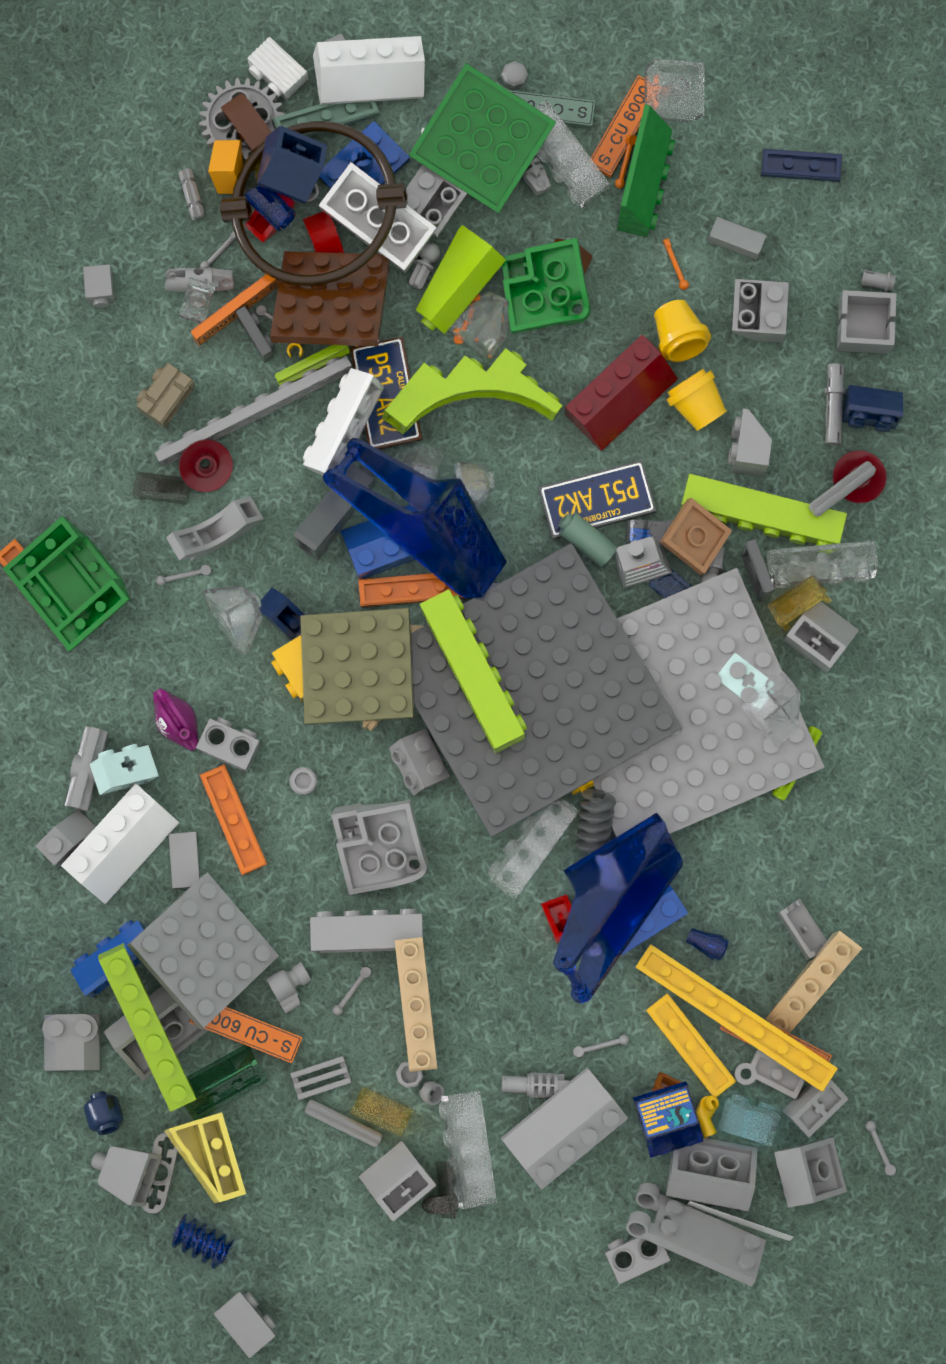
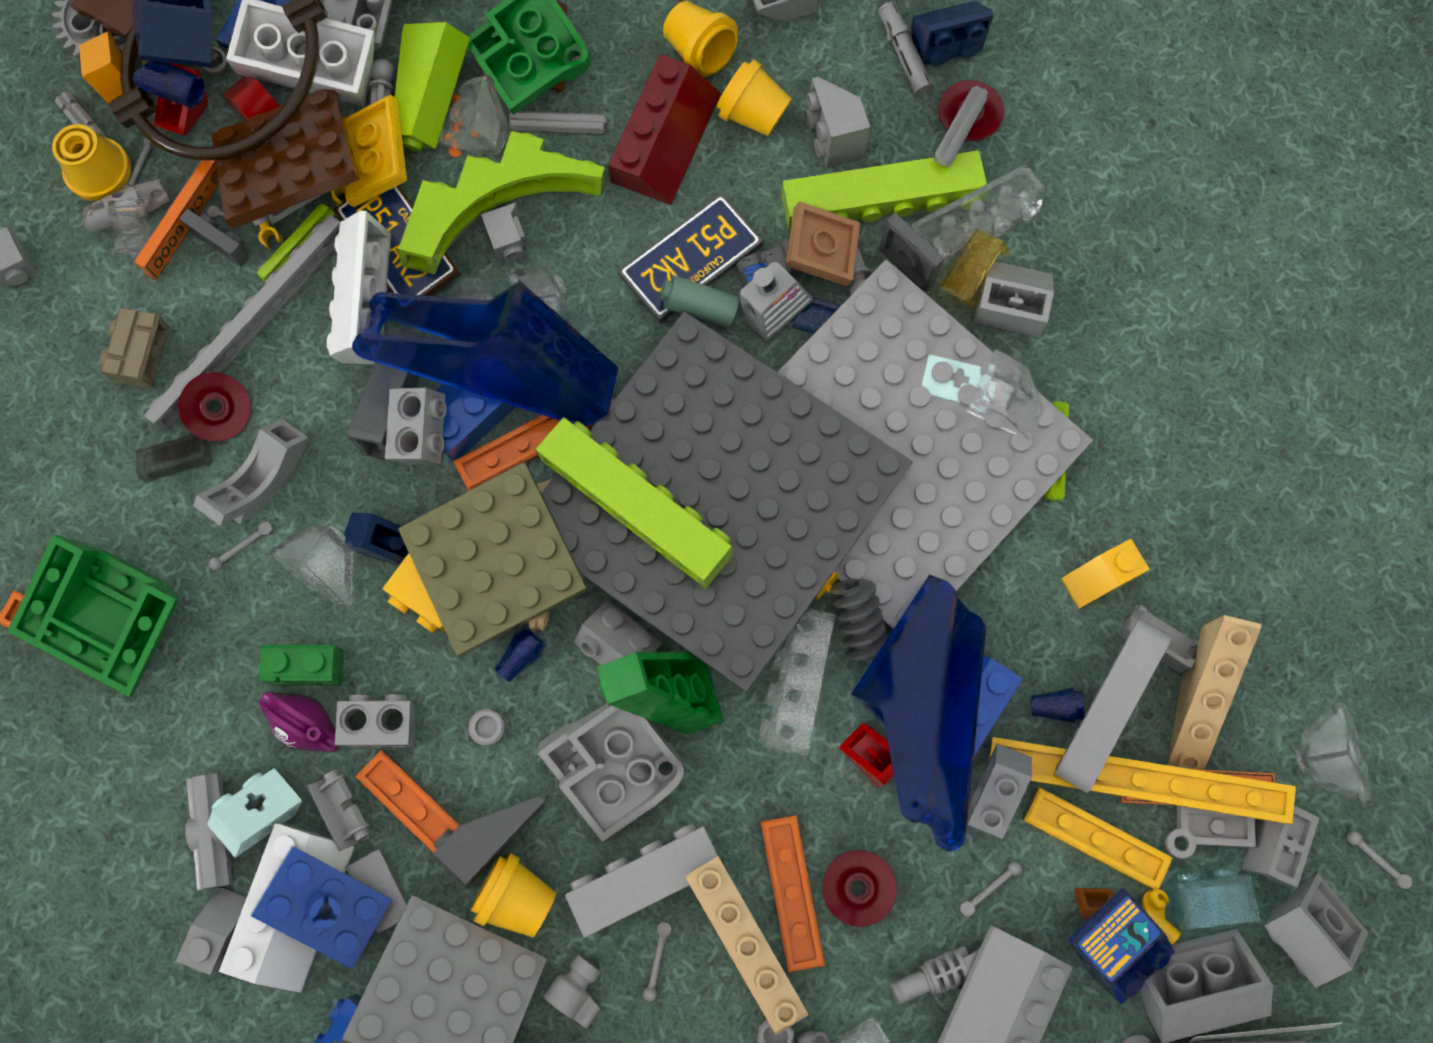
camera: 25 degrees left, 5 degrees down
(144, 853) = (321, 907): none -> blue plate
(180, 801) = (338, 811): none -> light grey hinge
(188, 249) = (90, 162): none -> yellow piece
(194, 681) = (301, 665): none -> green brick
(267, 857) = (479, 842): none -> dark grey slope
(273, 904) = (513, 898): none -> yellow piece
(337, 545) = (409, 425): none -> light grey brick
(347, 740) = (520, 654): none -> clear blue cone
(401, 318) = (376, 149): none -> yellow tile
(436, 810) = (663, 688): none -> green wedge
(463, 987) = (792, 894): none -> orange tile
(468, 423) = (505, 232): none -> light grey window
(510, 988) = (878, 893): none -> dark red dish
(546, 350) = (558, 122): none -> light grey axle
(635, 981) = (1000, 791): none -> light grey brick
(741, 958) = (1113, 705): none -> light grey beam
(785, 866) = (1105, 573): none -> yellow slope
(883, 1063) = (1334, 755): none -> clear slope

